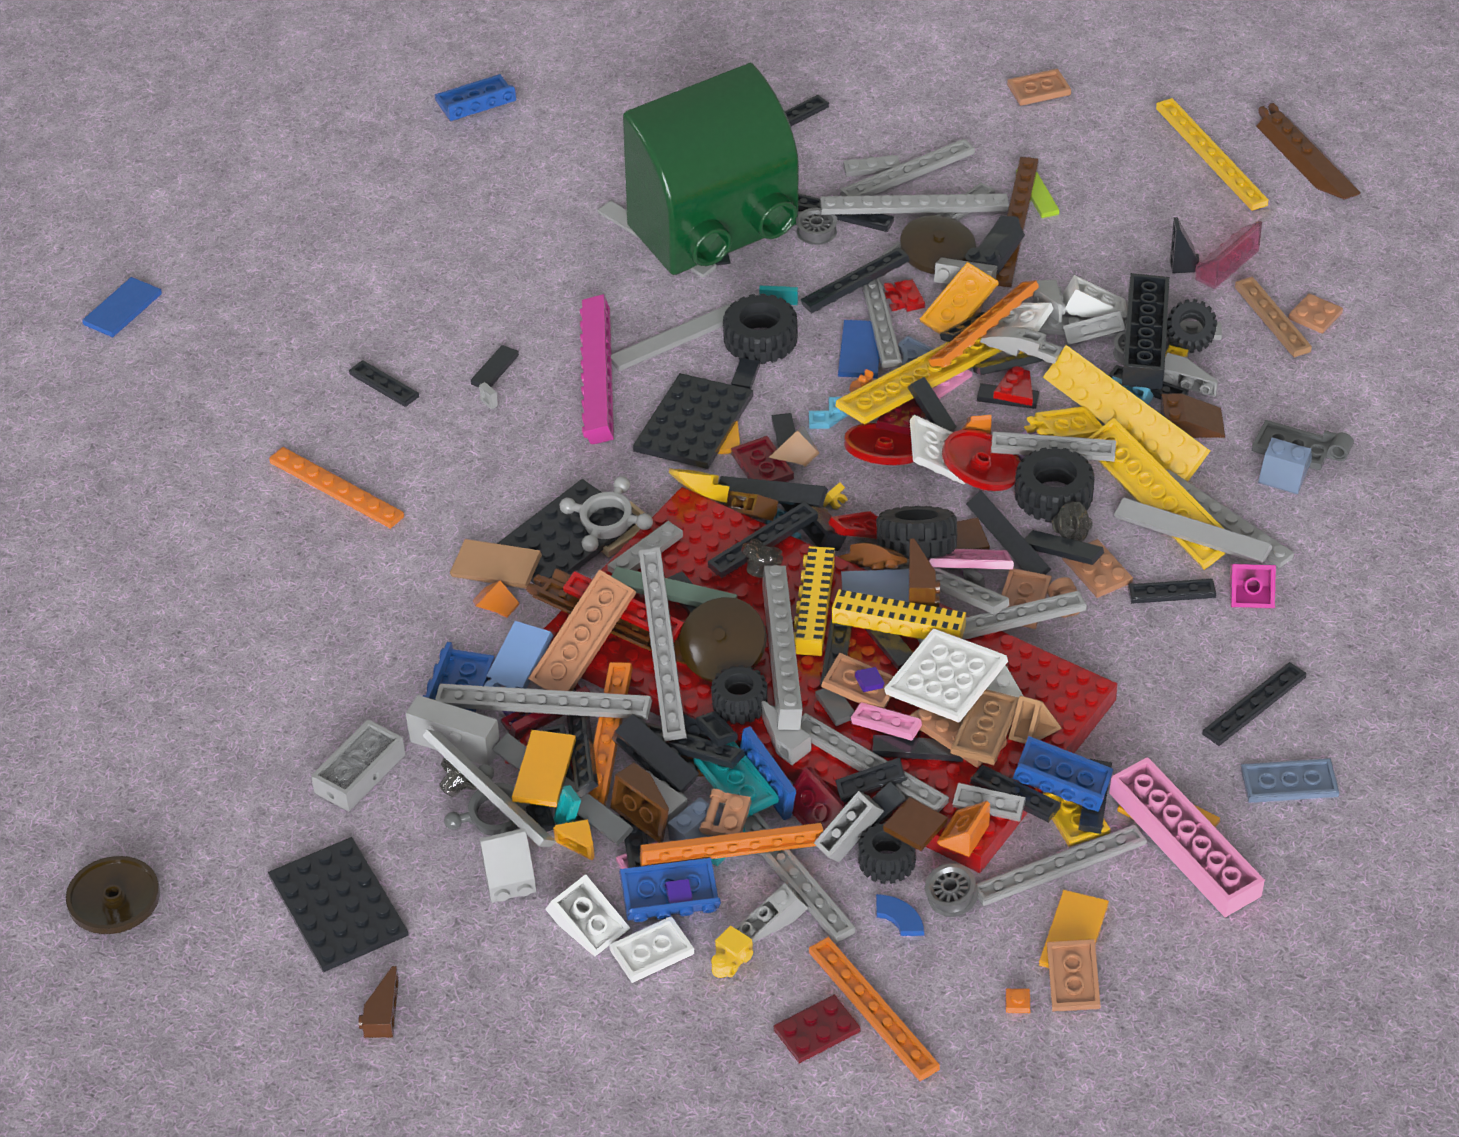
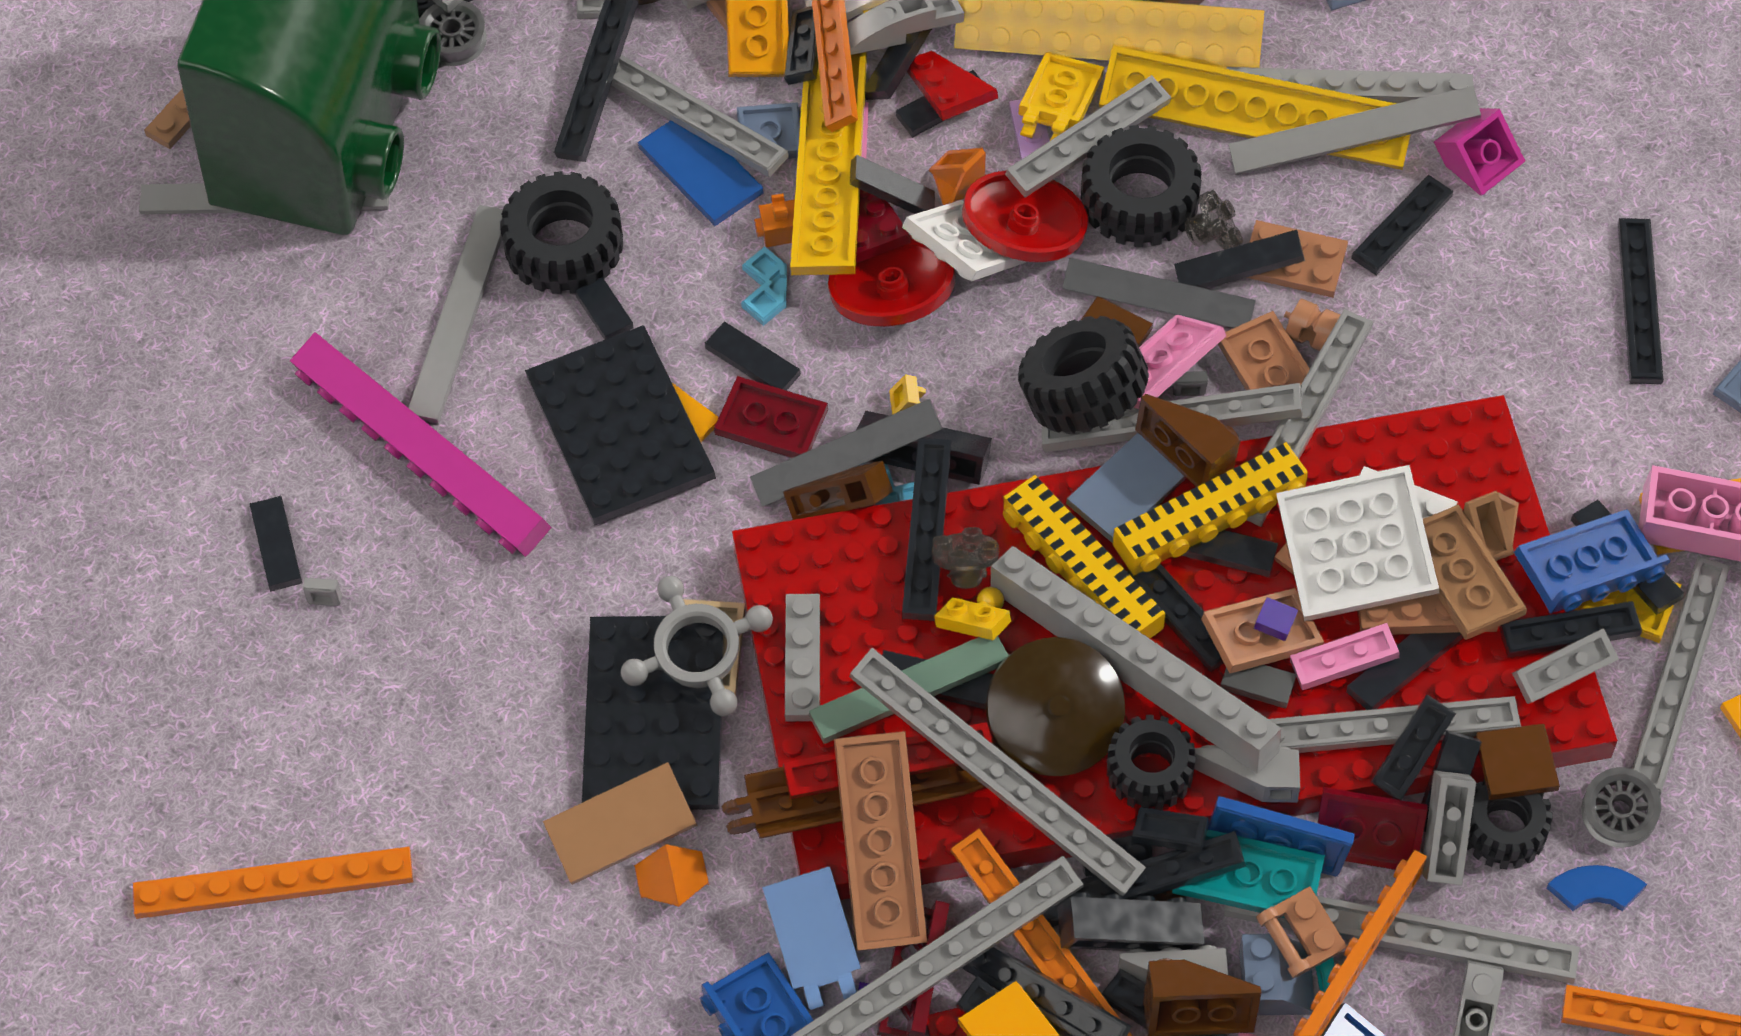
camera: 45 degrees left, 15 degrees up
(384, 383) = (154, 681): black tile -> none
(701, 483) = (743, 506): yellow brick -> none
(737, 586) = (977, 619): none -> yellow plate
(789, 294) = (521, 166): teal tile -> none
(797, 448) = (796, 366): medium nougat slope -> none
(855, 524) = (994, 413): red wing -> none
(873, 556) = (1077, 446): dark orange slope -> none
(904, 295) = (672, 49): red plate -> none
(966, 828) = (1580, 720): orange slope -> none

